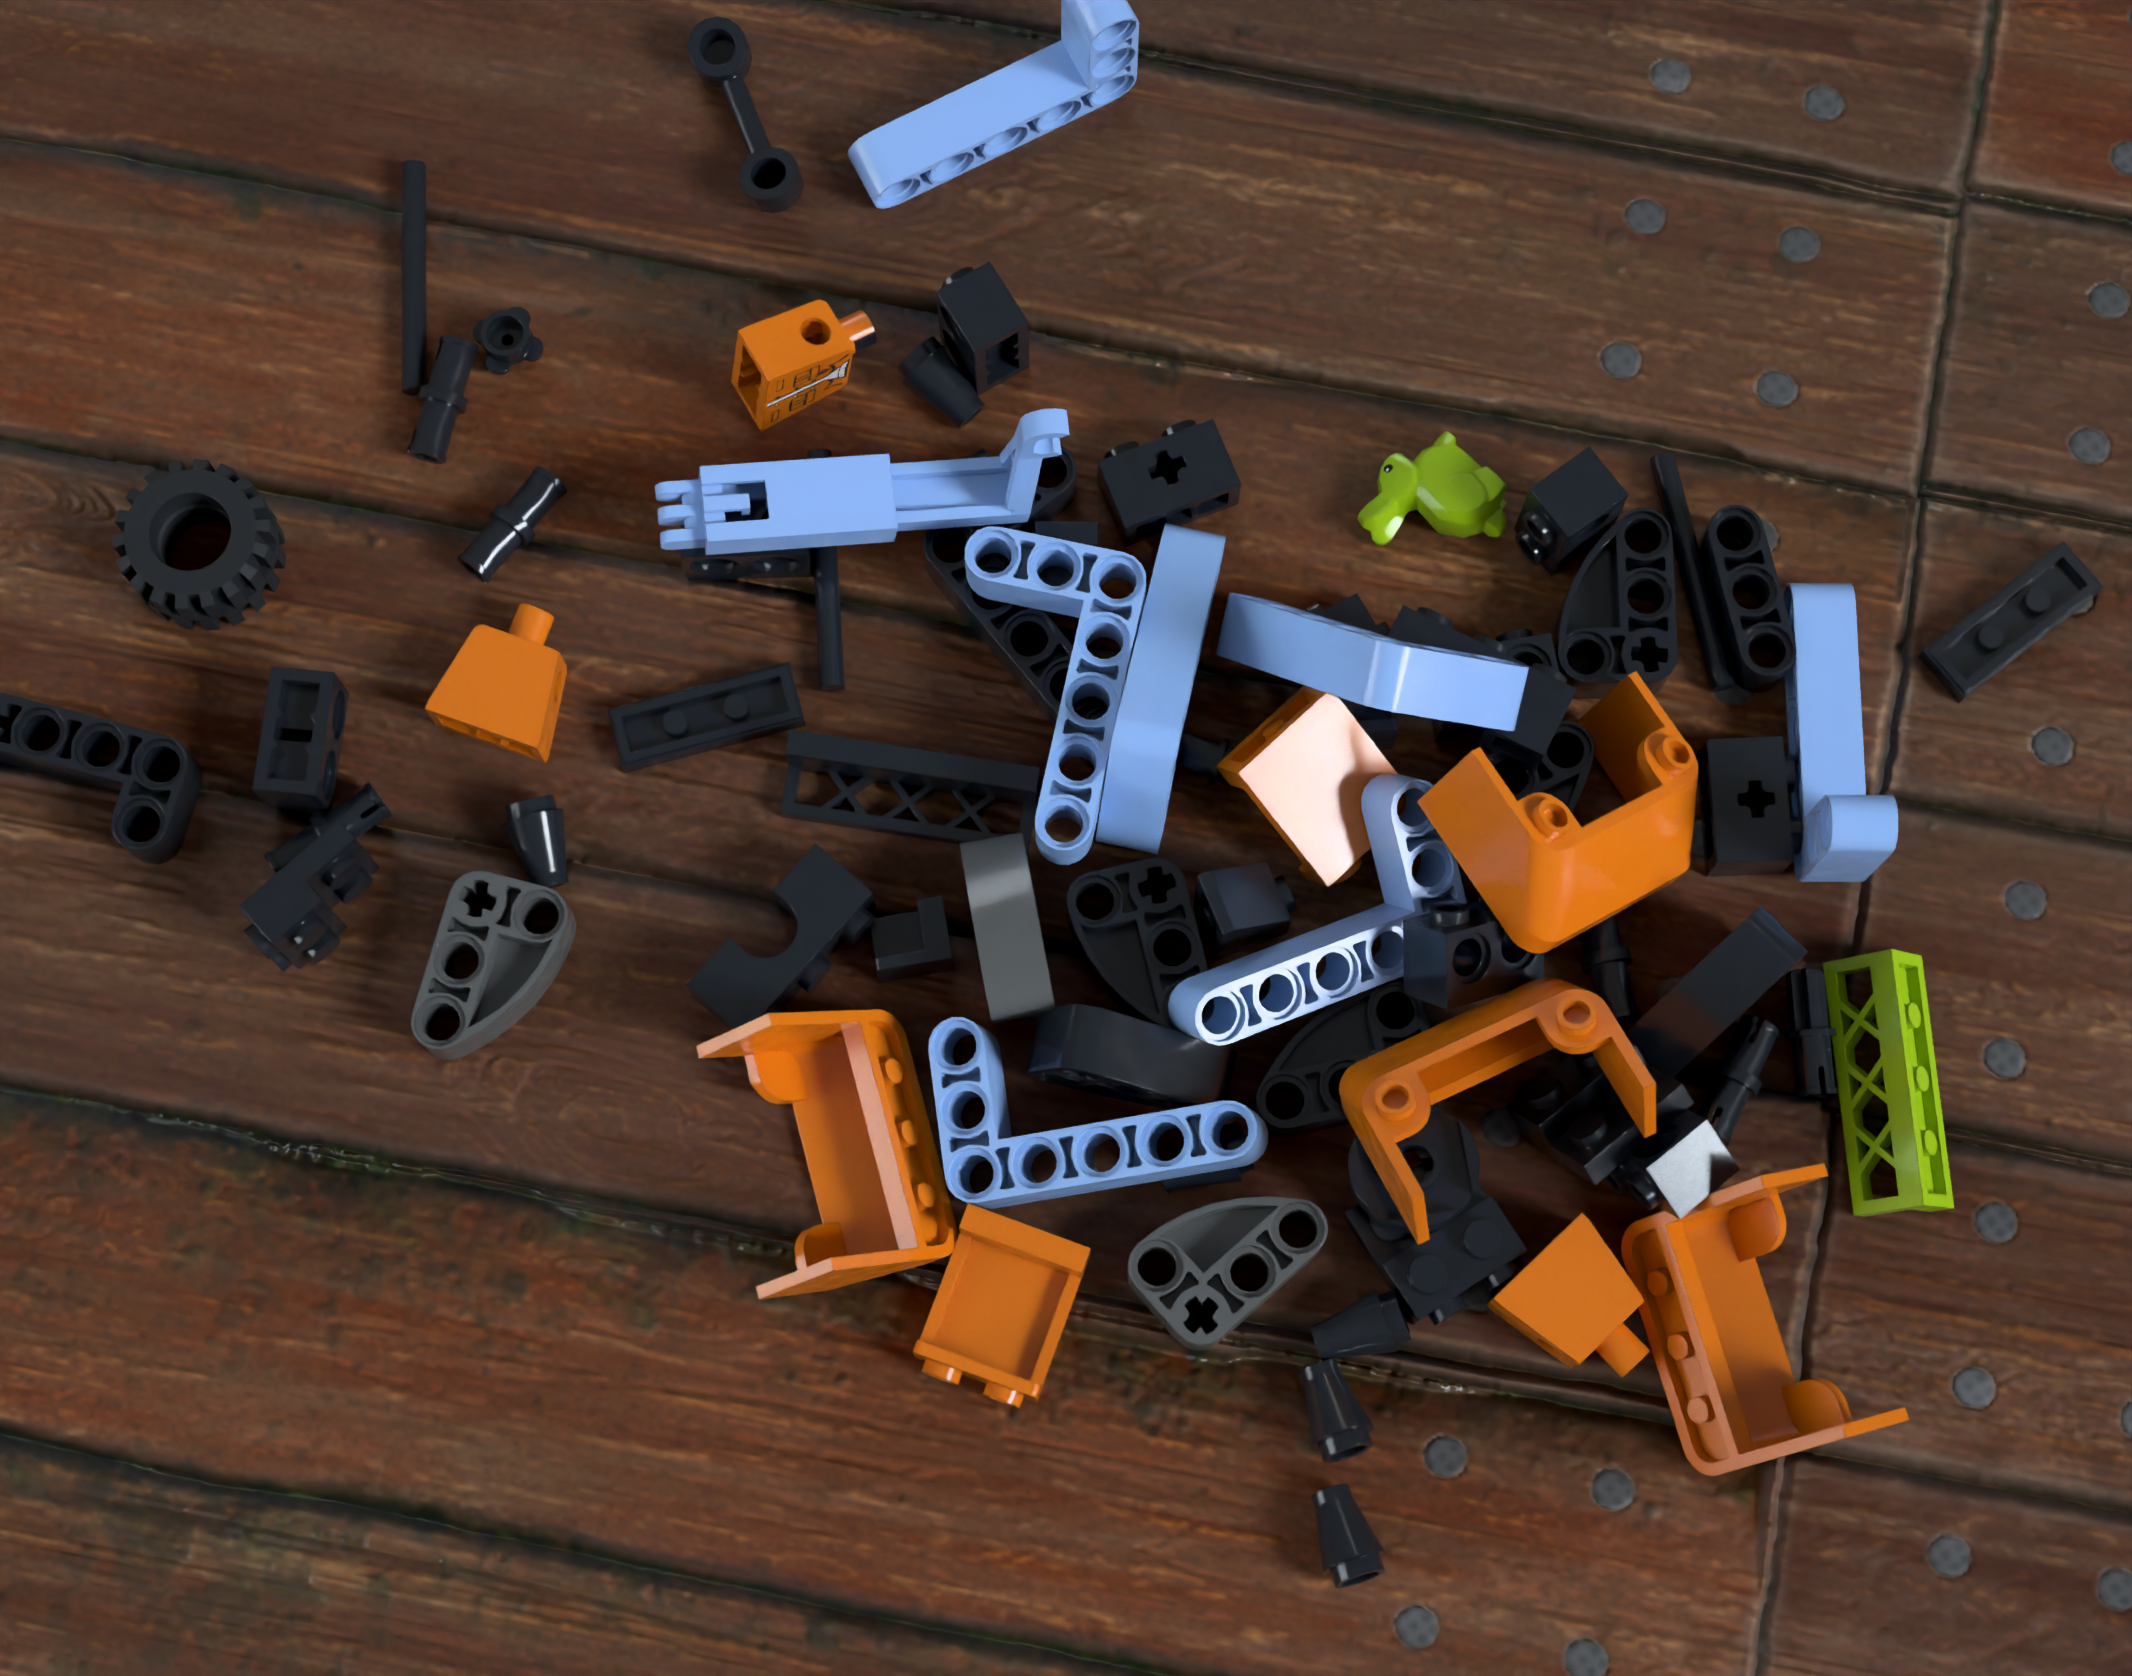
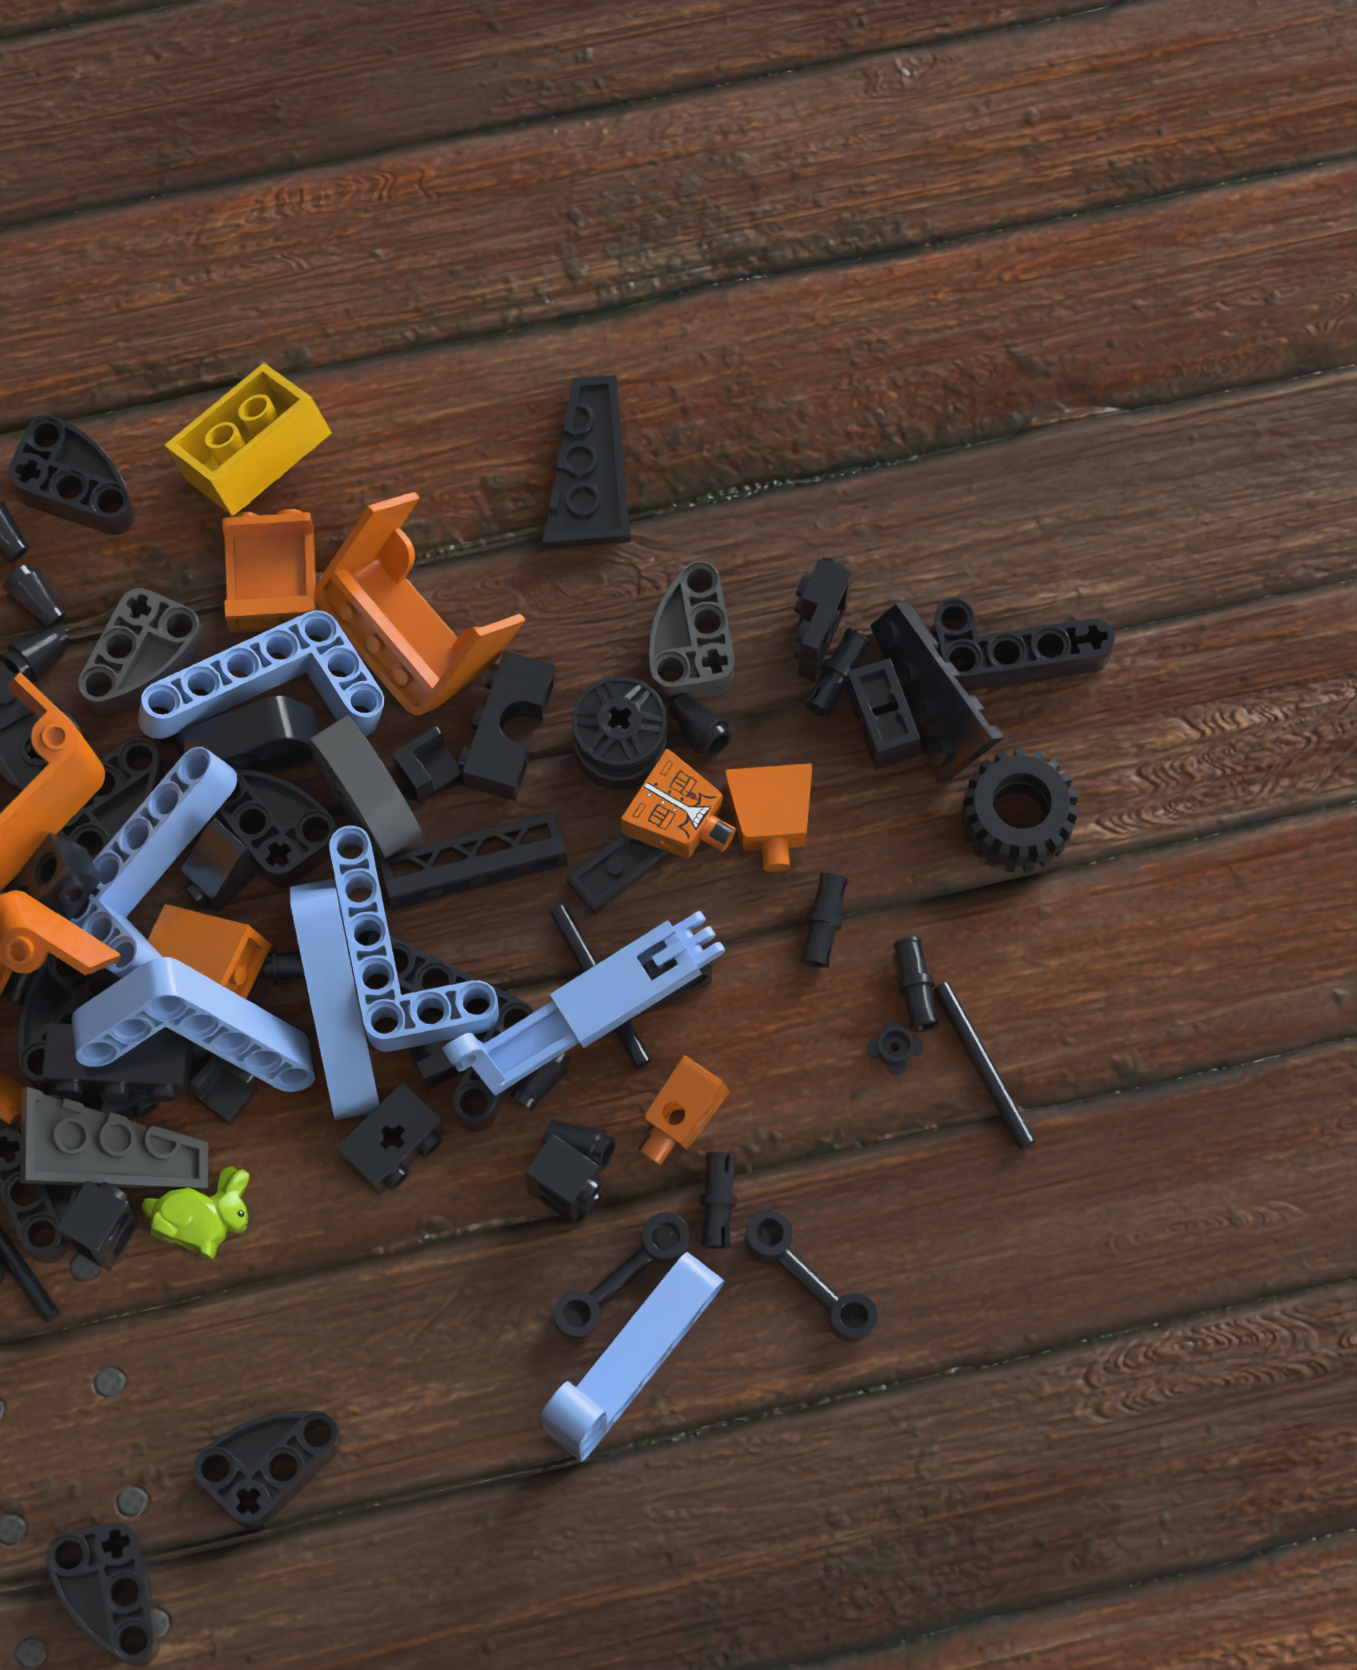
camera: 155 degrees right, 5 degrees down
(223, 698) = (943, 713): none -> black wing
(509, 1256) = (589, 482): none -> black wing
(624, 724) = (677, 810): none -> orange torso
(682, 864) = (619, 756): none -> black wheel
(809, 249) = (718, 1200): none -> black pin
(898, 232) = (578, 1312): none -> black piece
(949, 1499) = (248, 439): none -> yellow brick
(1207, 1591) = (68, 465): none -> black beam
(1487, 192) = (253, 1453): none -> black beam
(1536, 597) = (77, 1144): none -> dark grey wing
(1731, 125) = (92, 1588): none -> black beam

